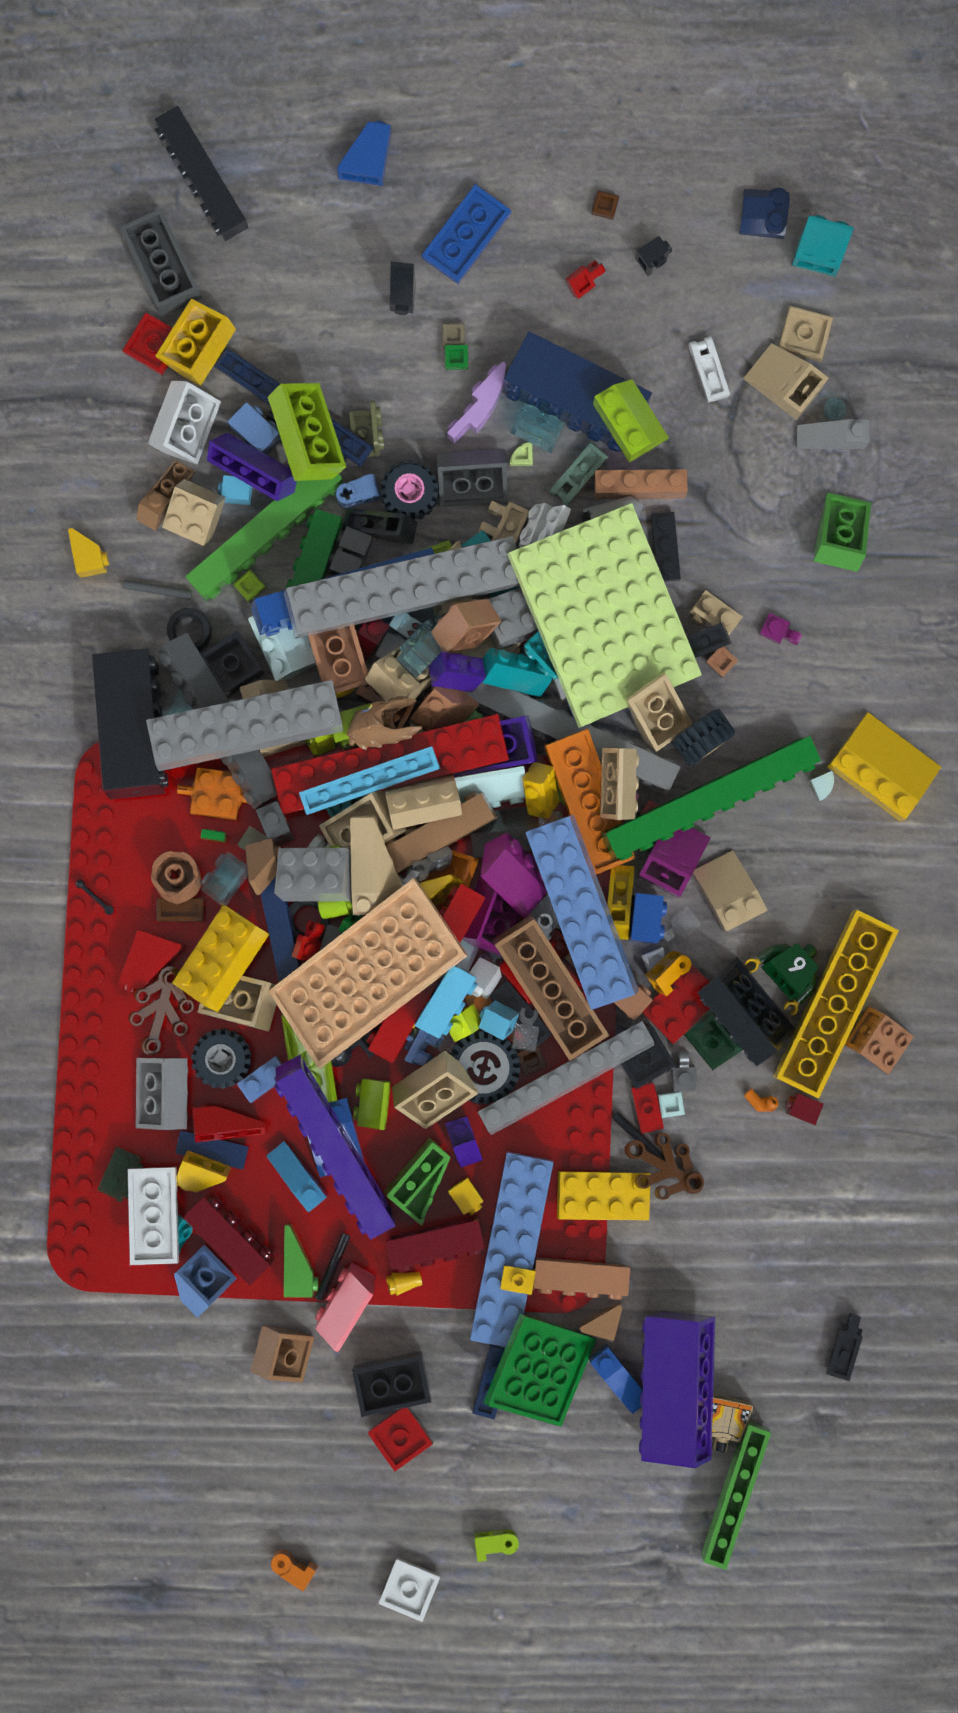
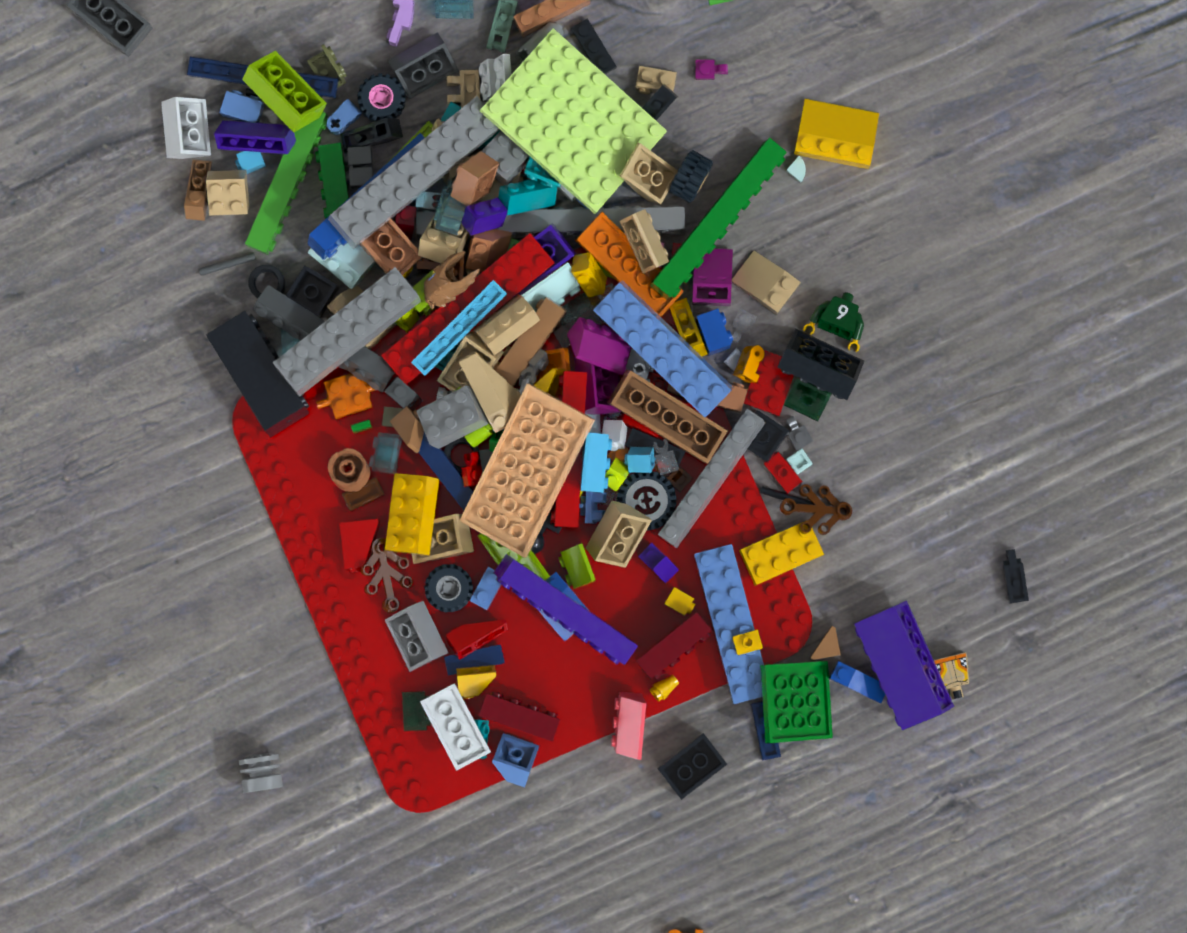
camera: 20 degrees left, 0 degrees up
(87, 555) = (163, 263): yellow slope -> none
(108, 909) = (279, 511): black hinge -> none
(147, 341) = (133, 80): red plate -> none
(196, 341) = (165, 63): yellow slope -> none
(249, 585) = (295, 227): lime tile -> none
(282, 1354) = (600, 785): medium nougat slope -> none
(297, 1176) = (547, 648): dark azure slope -> none
(298, 1271) = (581, 716): bright green slope -> none
(332, 1267) = (606, 702): black bar -> none
(400, 1438) = (717, 804): red plate -> none
(409, 1589) = (778, 911): white plate -> none
(418, 1180) = (638, 609): bright green wedge -> none
(495, 1542) = (828, 843): lime leg -> none
(522, 455) = (453, 30): yellowish green tile -> none
(581, 1276) = (794, 619): nougat brick -> none
(721, 661) = (677, 113): nougat plate -> none
(735, 1495) = (985, 723): bright green brick -> none
(761, 1104) = (866, 428): orange arm -> none
(803, 1108) = (898, 416): dark red brick -> none
(835, 1003) = (884, 327): yellow brick -> none
(879, 1039) = (930, 338): nougat bracket -> none

